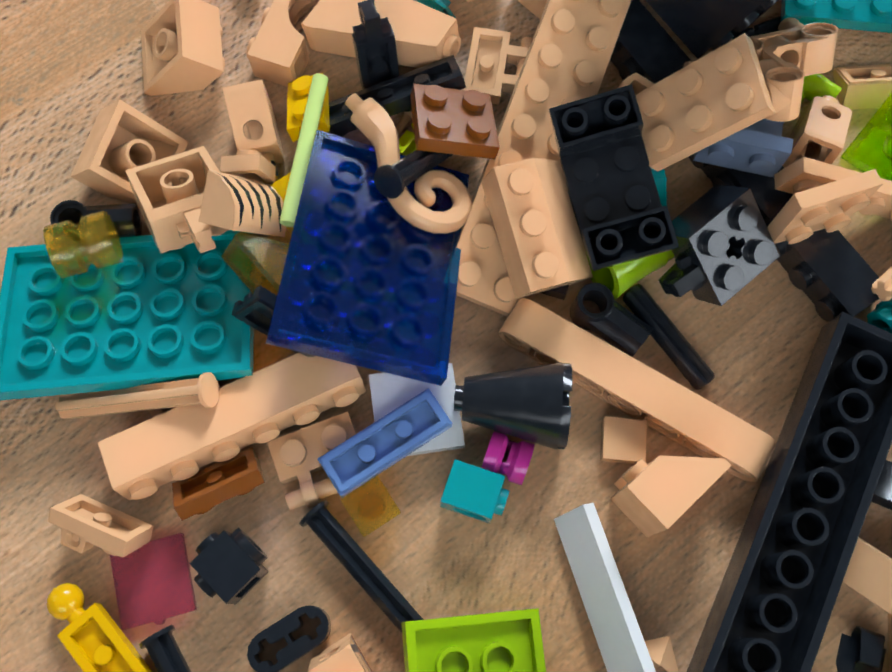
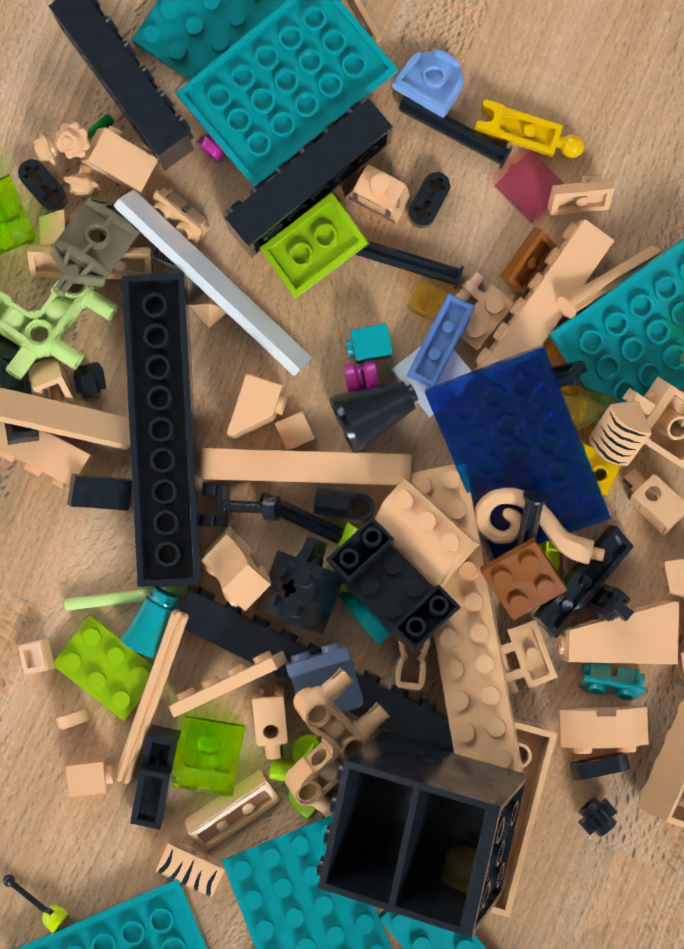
camera: 145 degrees right, 15 degrees up
(228, 565) = (490, 219): black brick -> none
(248, 165) = (640, 466): light nougat plate -> none
(296, 103) = (635, 544): yellow plate -> none
(304, 148) = (611, 501): yellowish green piece -> none
(703, 103) = (362, 666): light nougat plate -> none
(707, 358) = (270, 506): none -> black bar
(782, 311) = (238, 574): none -> light nougat brick
(823, 207) = (237, 649): light nougat plate -> none

